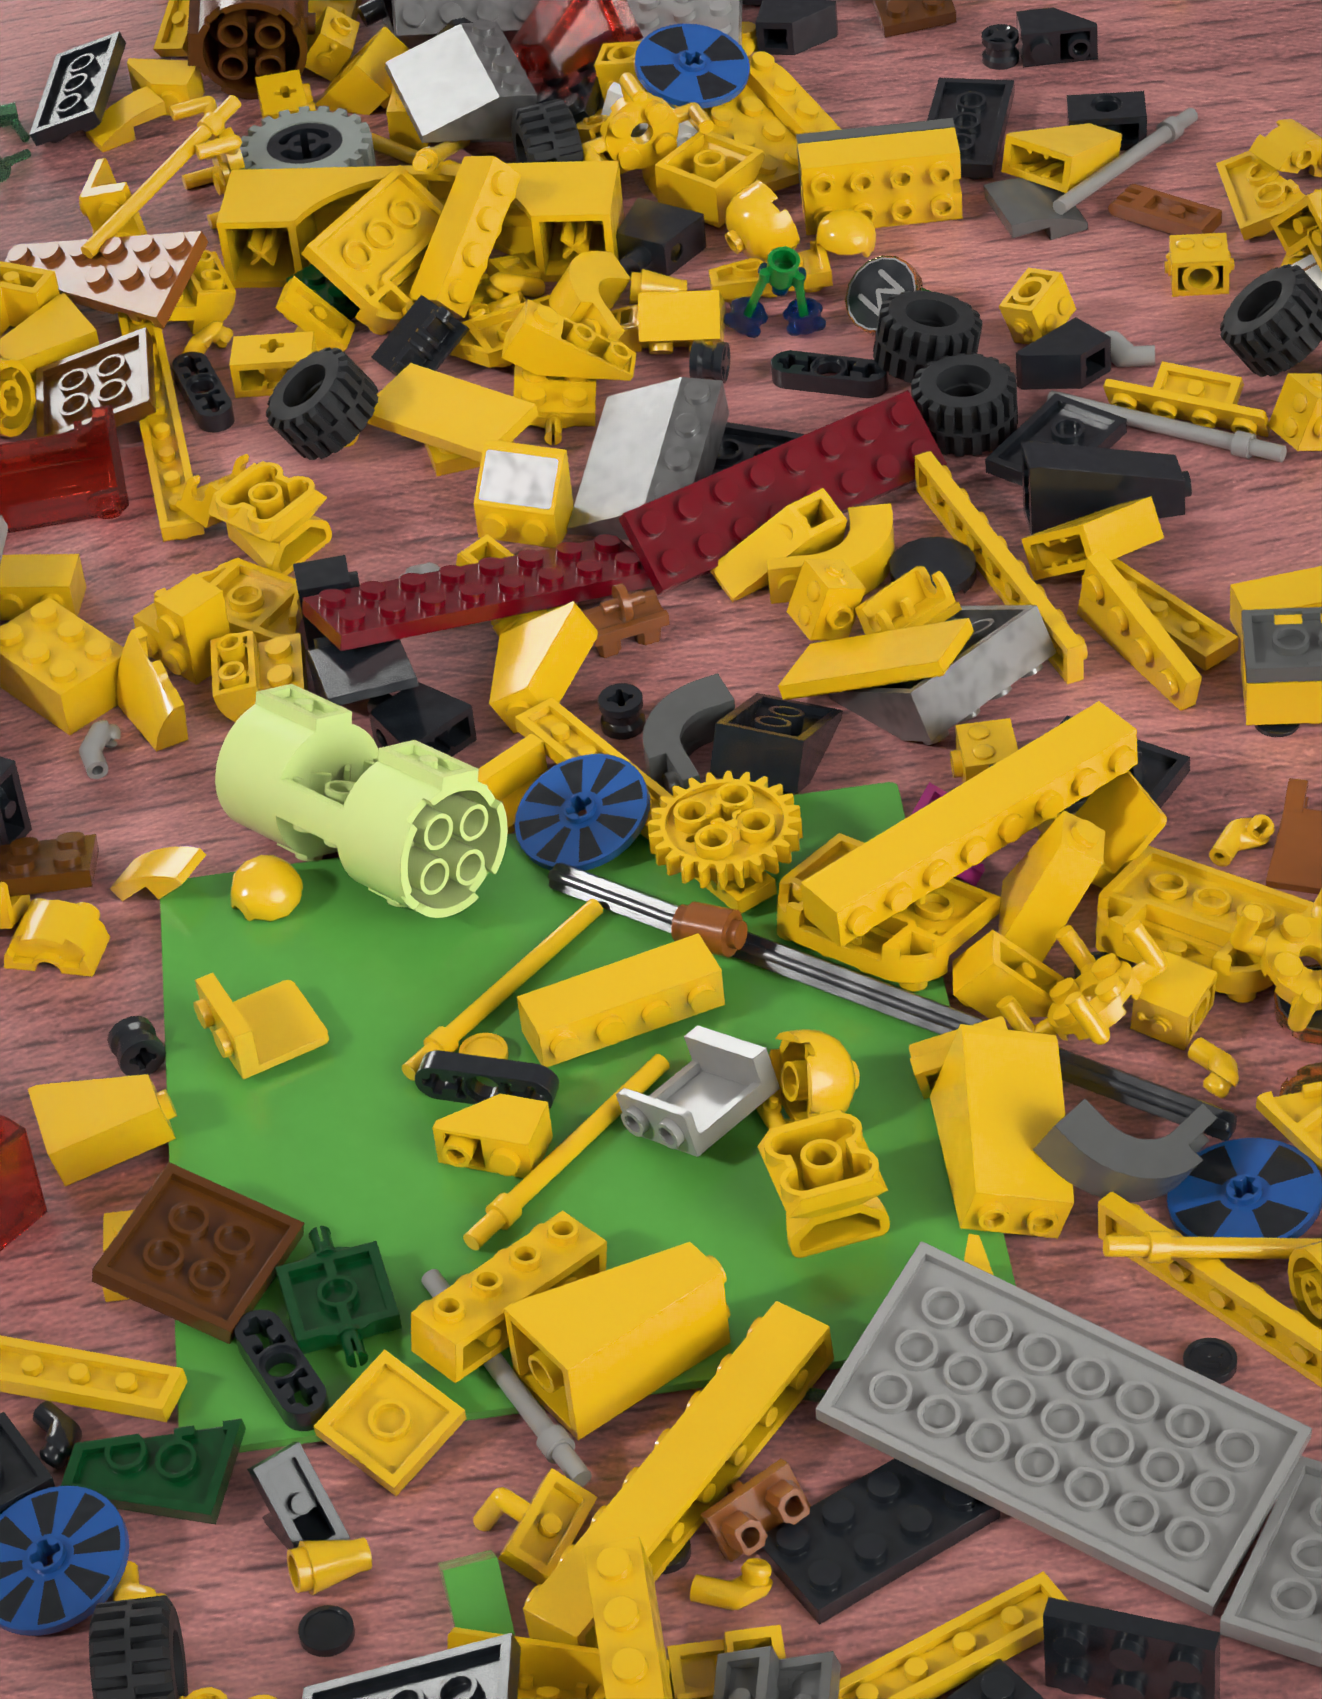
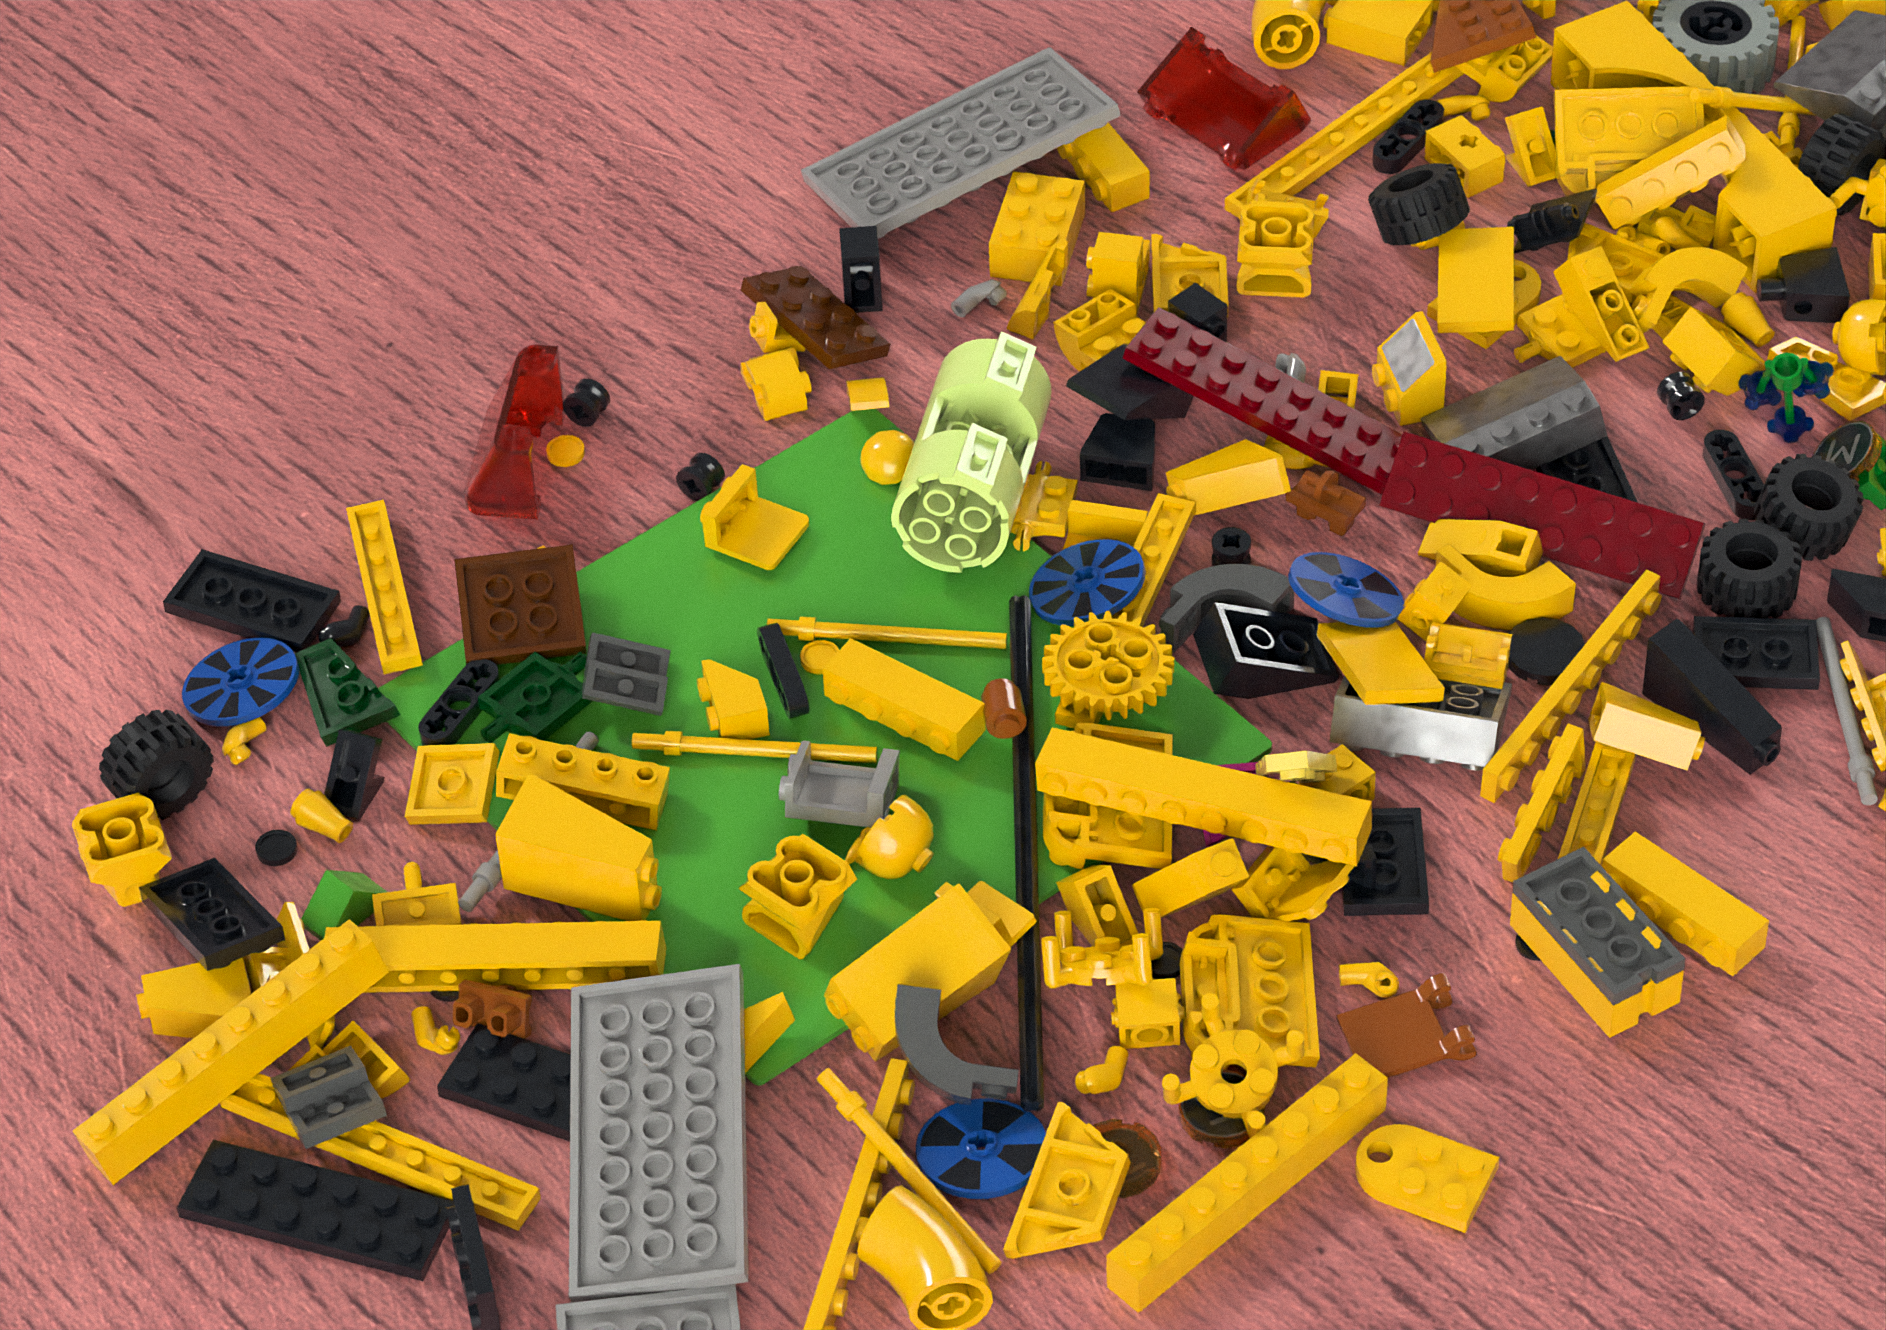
camera: 55 degrees right, 5 degrees up
(100, 1122) = (609, 496): yellow slope -> none
(104, 375) = (1347, 77): reddish brown plate -> none
(378, 1205) = (626, 674): none -> dark grey slope
(751, 651) = (1346, 589): none -> blue piece
(992, 742) = (1297, 766): none -> light yellow wing
(1211, 1358) = (810, 1201): black piece -> none

